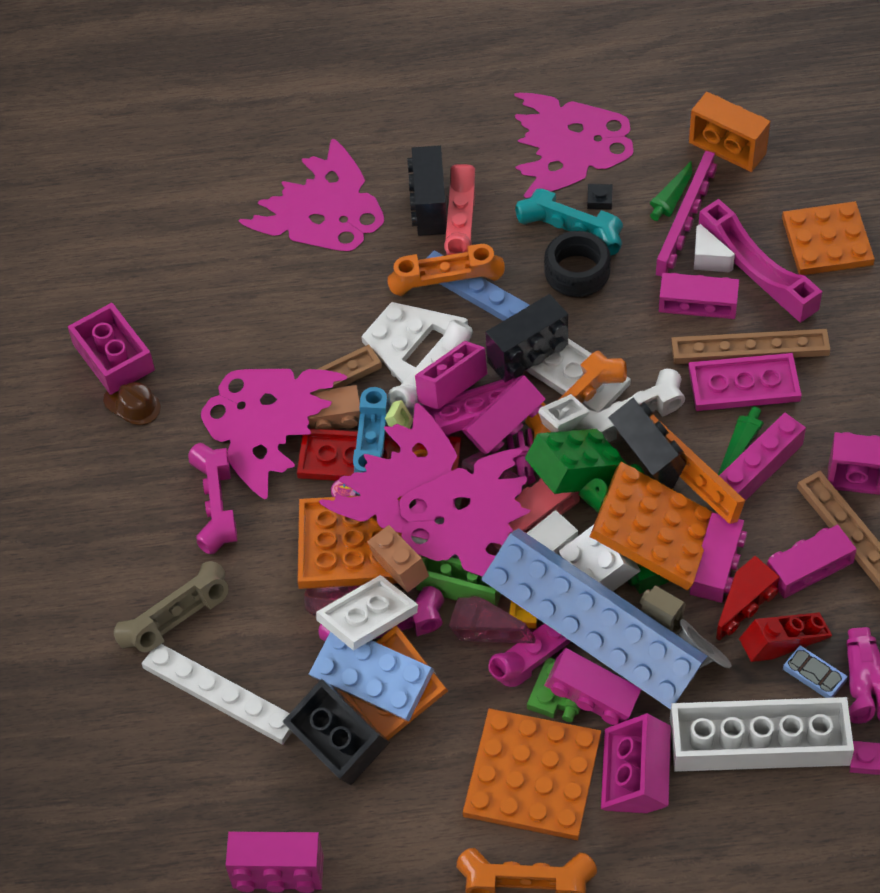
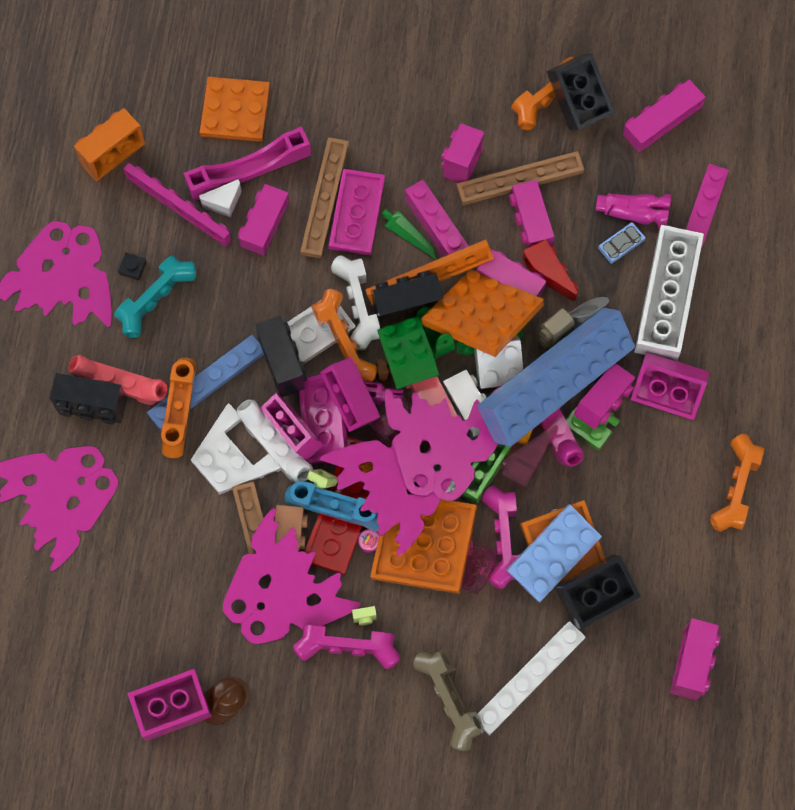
camera: 80 degrees left, 15 degrees up
(252, 504) = (364, 615): none -> yellowish green plate
(366, 612) = (508, 541): white plate -> none
(398, 558) = (467, 506): nougat brick -> none
(532, 774) = (655, 460): orange plate -> none
(563, 414) = (365, 348): white slope -> none
(577, 283) = (203, 281): black tyre -> none
(668, 198) = (151, 213): green bar -> none
(782, 635) = (589, 253): red slope -> none

